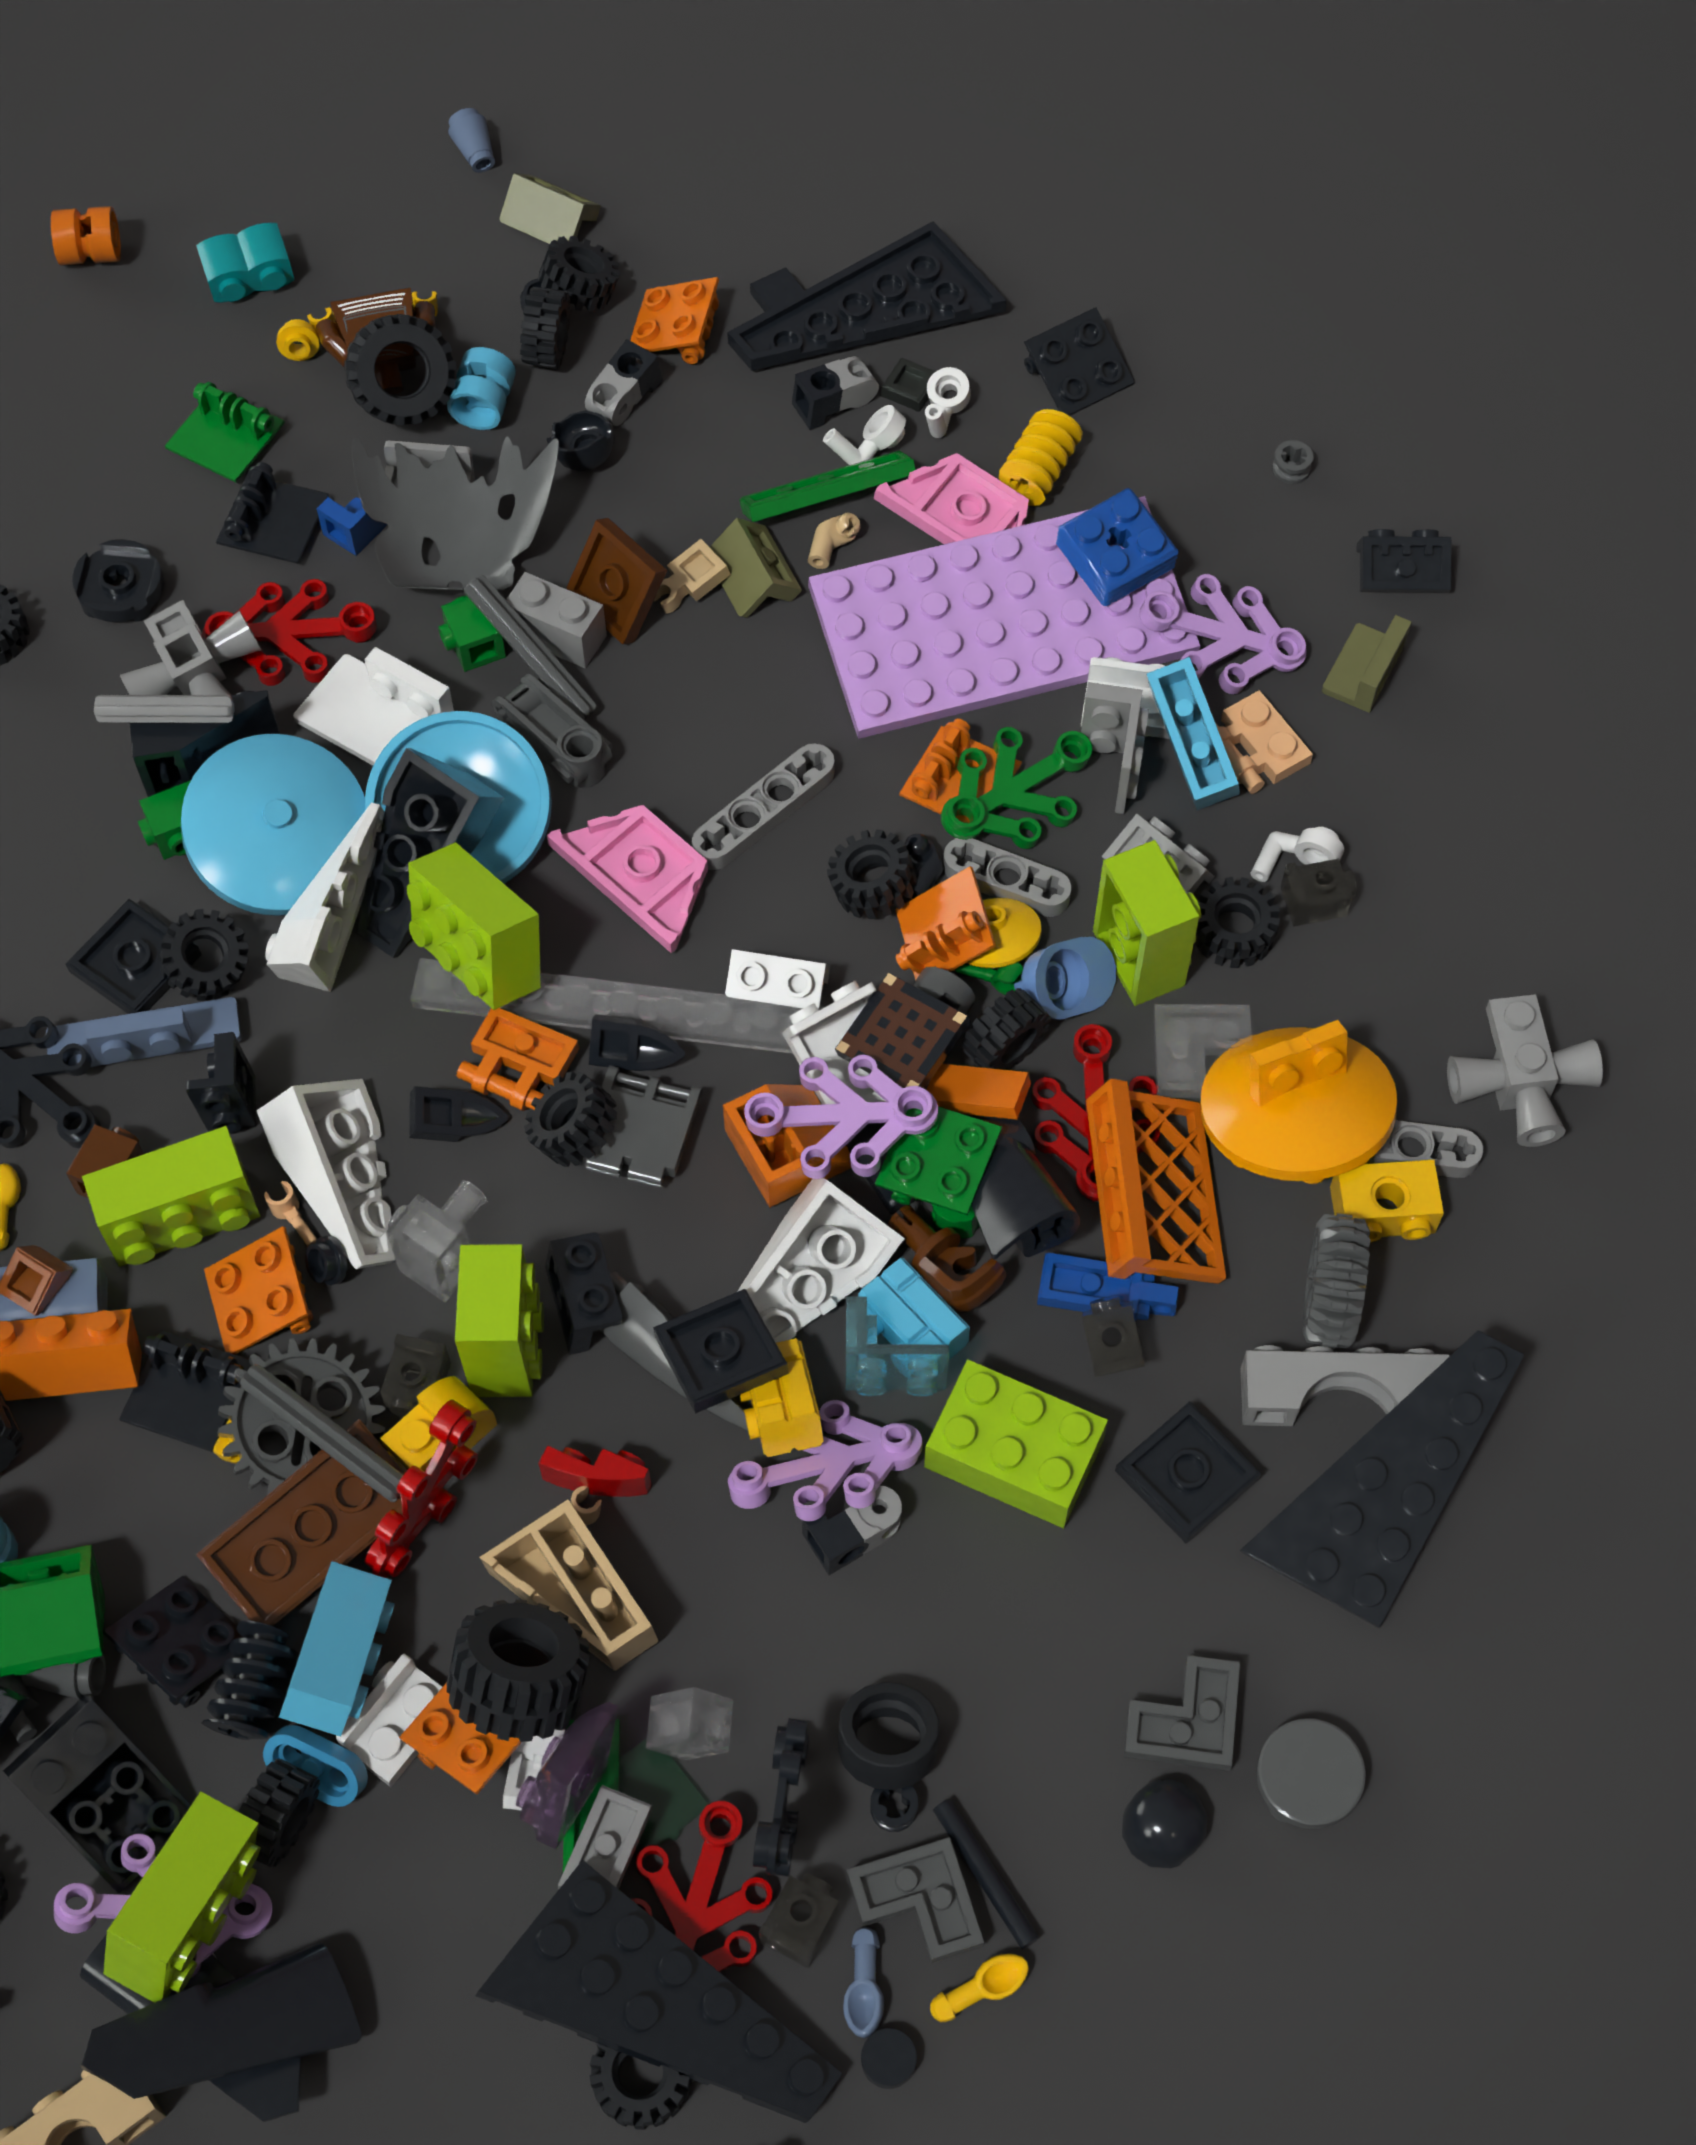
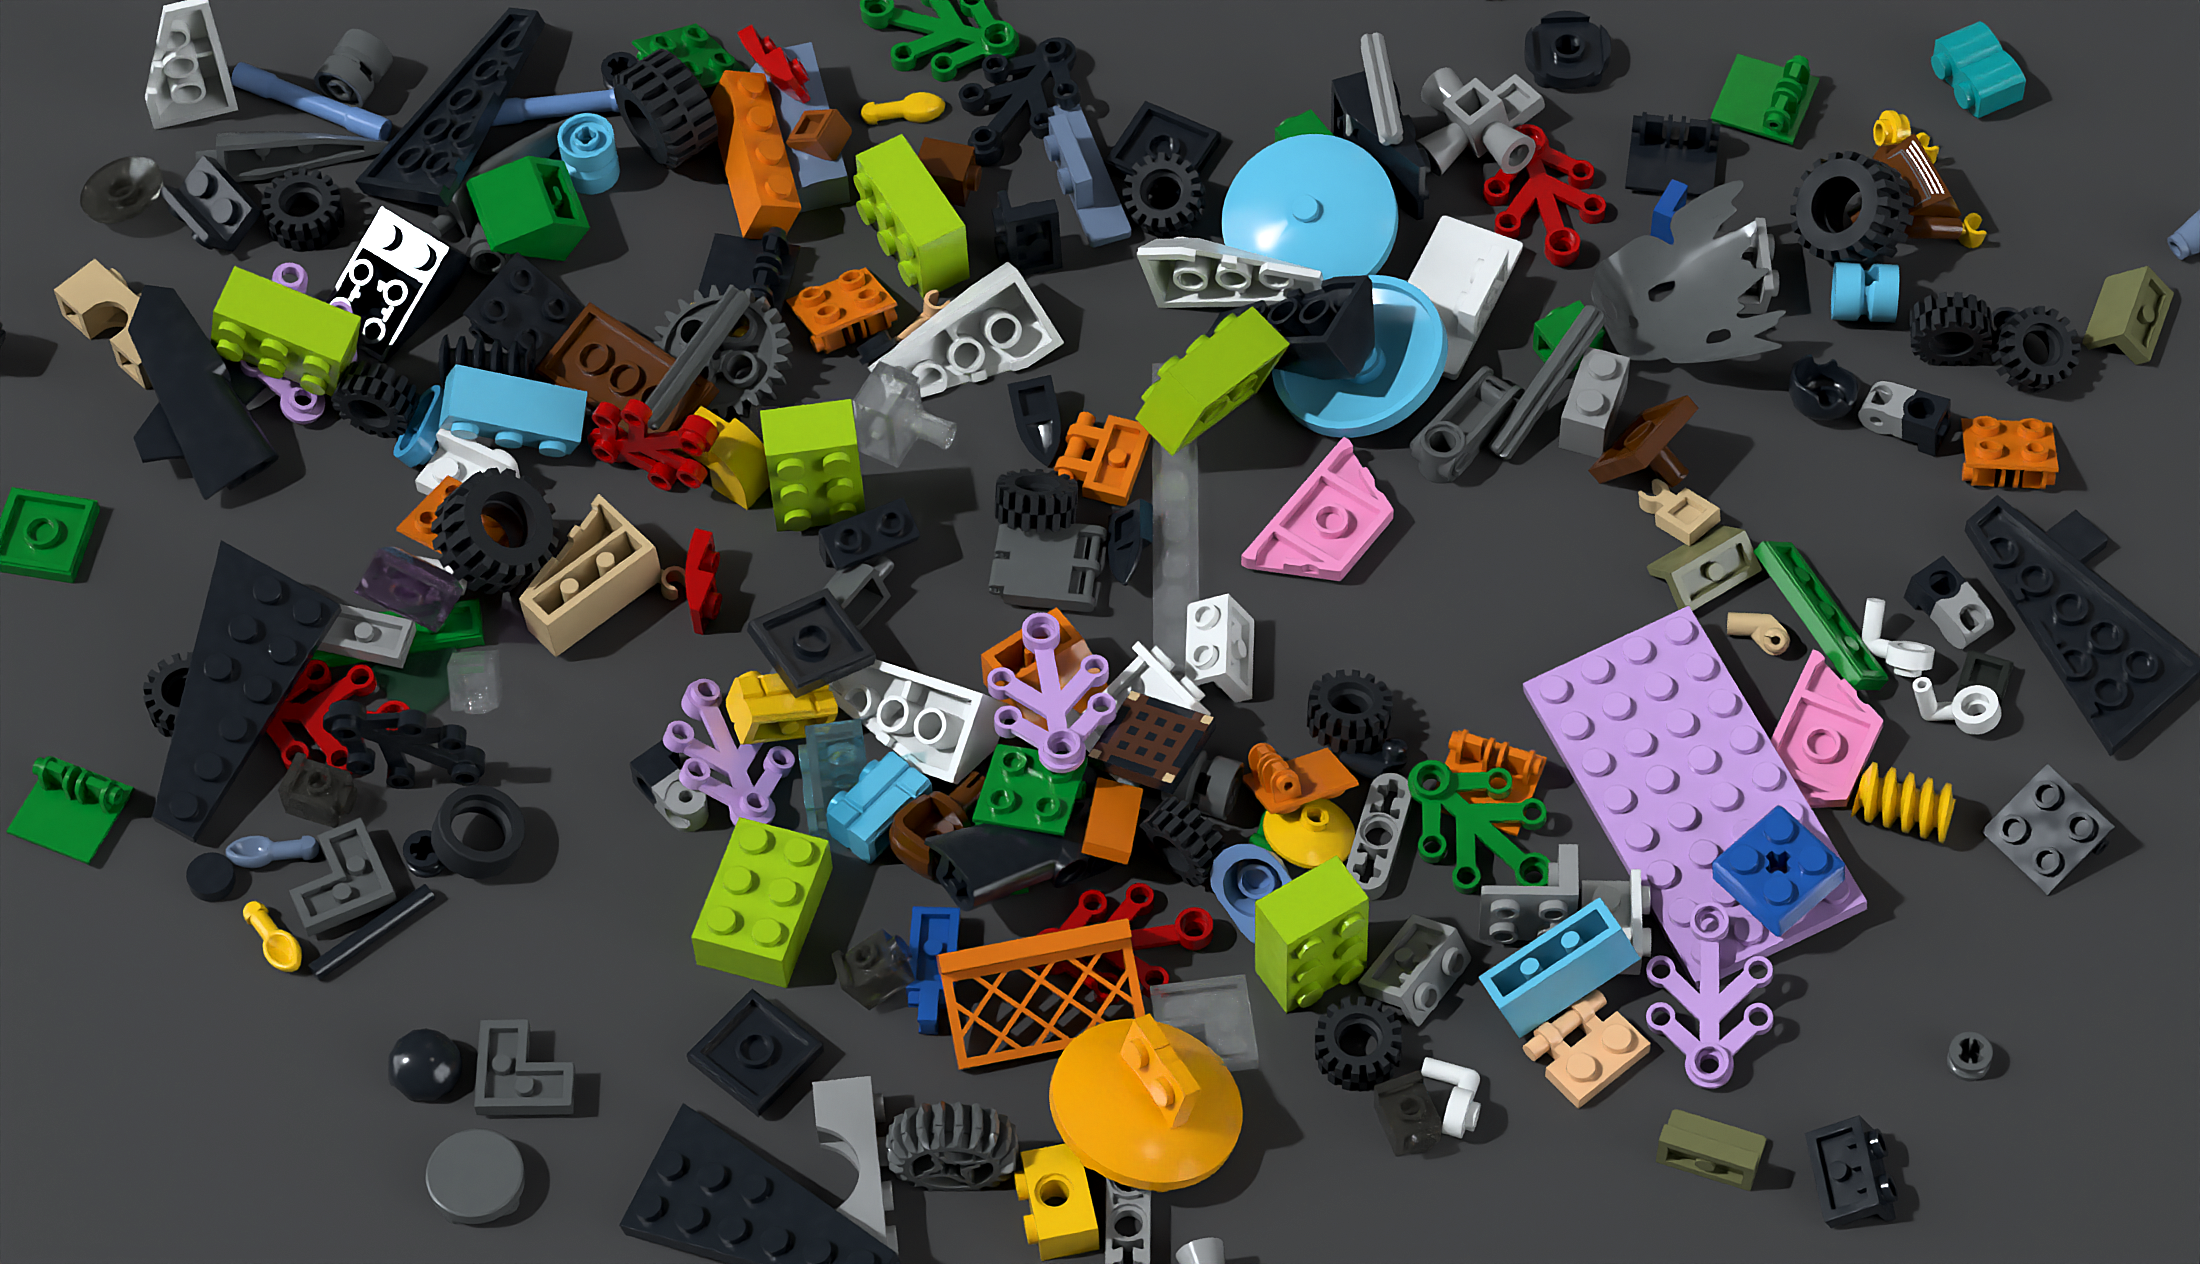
camera: 85 degrees right, 5 degrees down
(767, 809) = (1415, 622): light grey beam -> none

